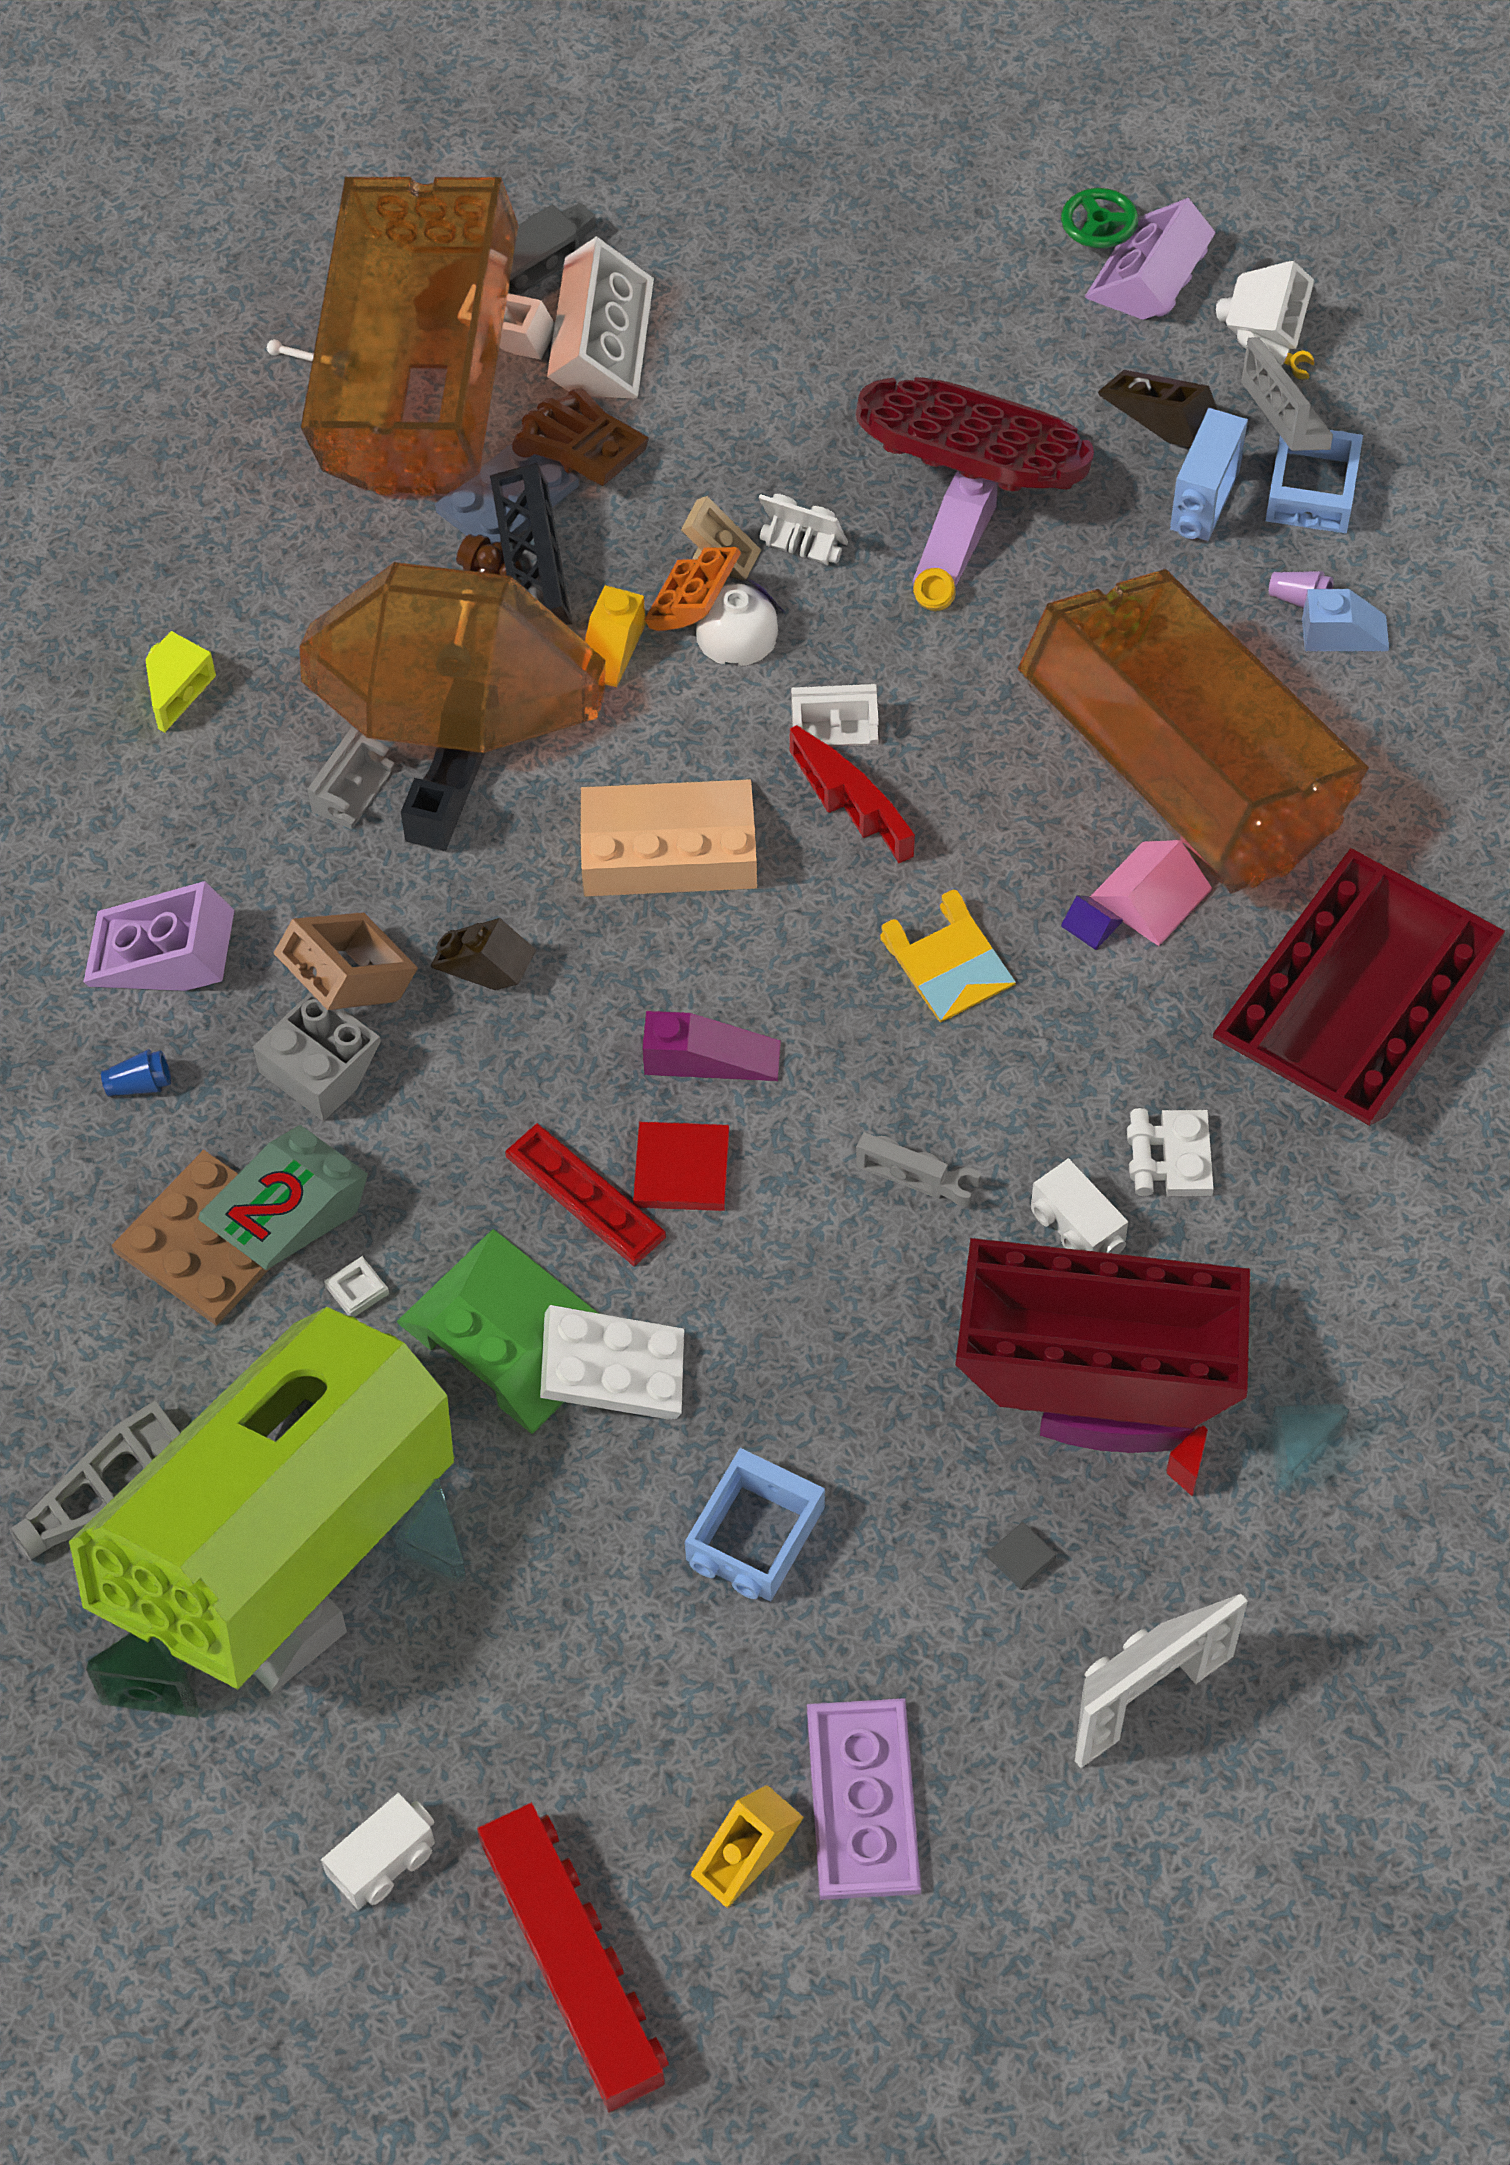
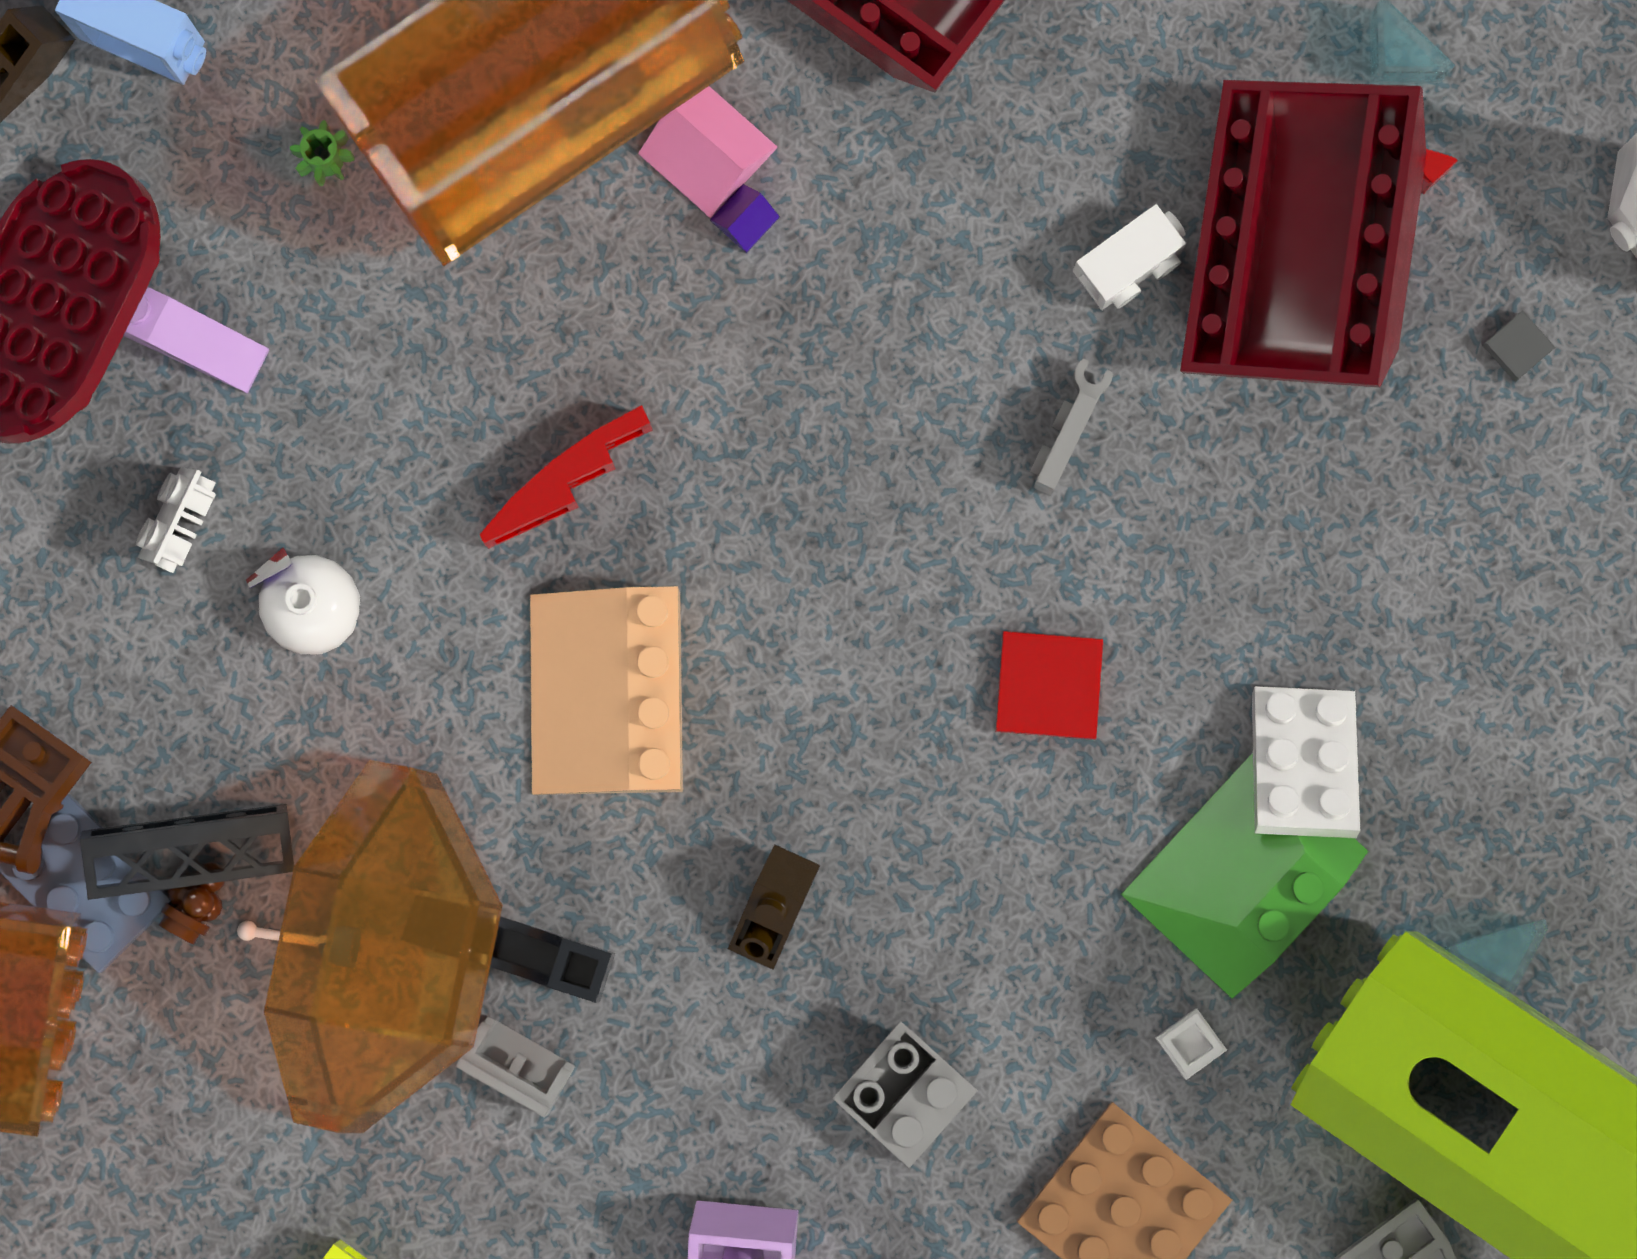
camera: 90 degrees left, 25 degrees up
(286, 1198) = (1107, 1125): sand green slope -> none
(338, 985) = (838, 1077): medium nougat window -> none
(585, 1194) = (1080, 792): red tile -> none
(615, 629) = (318, 751): yellow slope -> none
(691, 588) = (262, 653): orange slope -> none
(706, 1048) = (908, 649): magenta slope -> none
(711, 527) = (186, 619): tan slope -> none
(774, 1485) = (1448, 588): light blue window -> none
(837, 713) = (453, 492): white hinge -> none
(934, 589) = (267, 366): yellow tile -> none
(952, 965) = (797, 375): yellow flag -> none
(1185, 1151) = (1050, 141): white plate -> none

